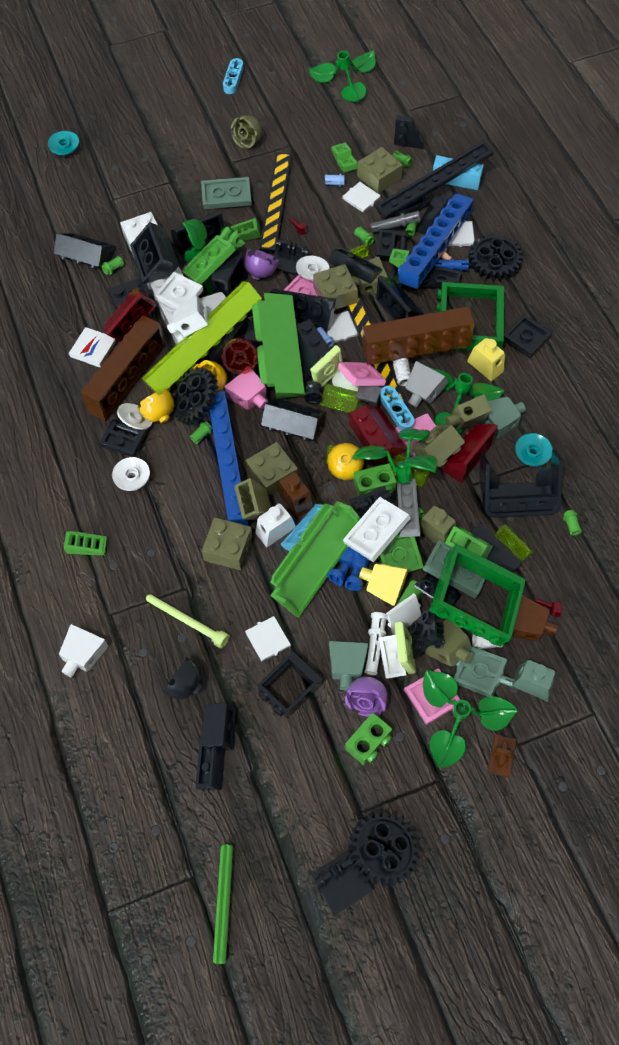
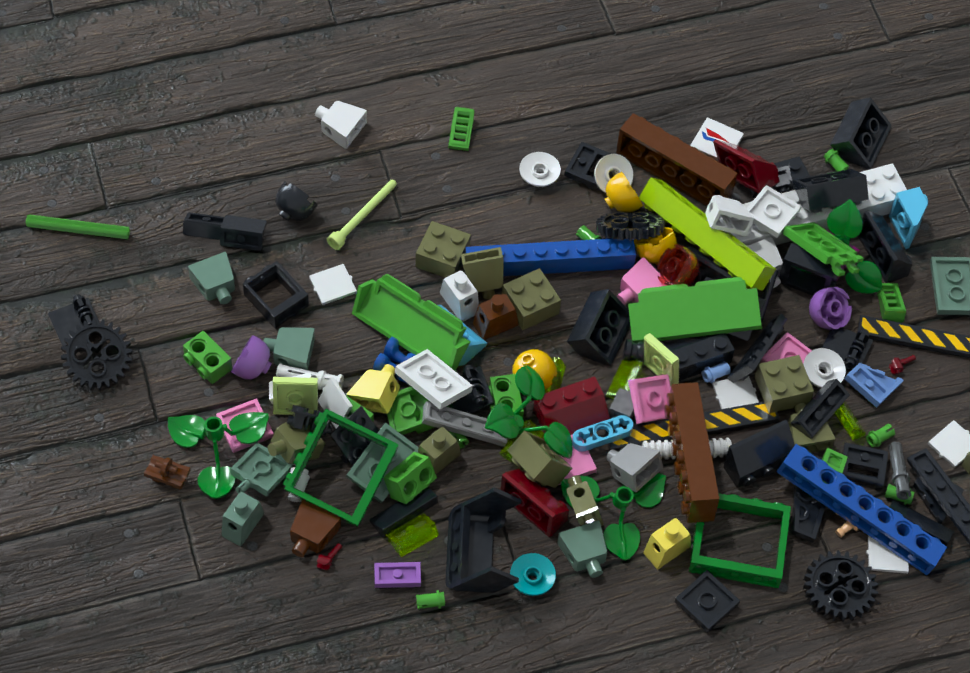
camera: 90 degrees right, 5 degrees down
(169, 211) = (908, 213): none -> medium azure slope
(277, 746) = (213, 278): none -> sand green torso
(321, 239) = (872, 383): none -> medium blue wing
(453, 264) = (828, 531): blue pin -> none
(556, 549) = (397, 574): none -> medium lavender plate

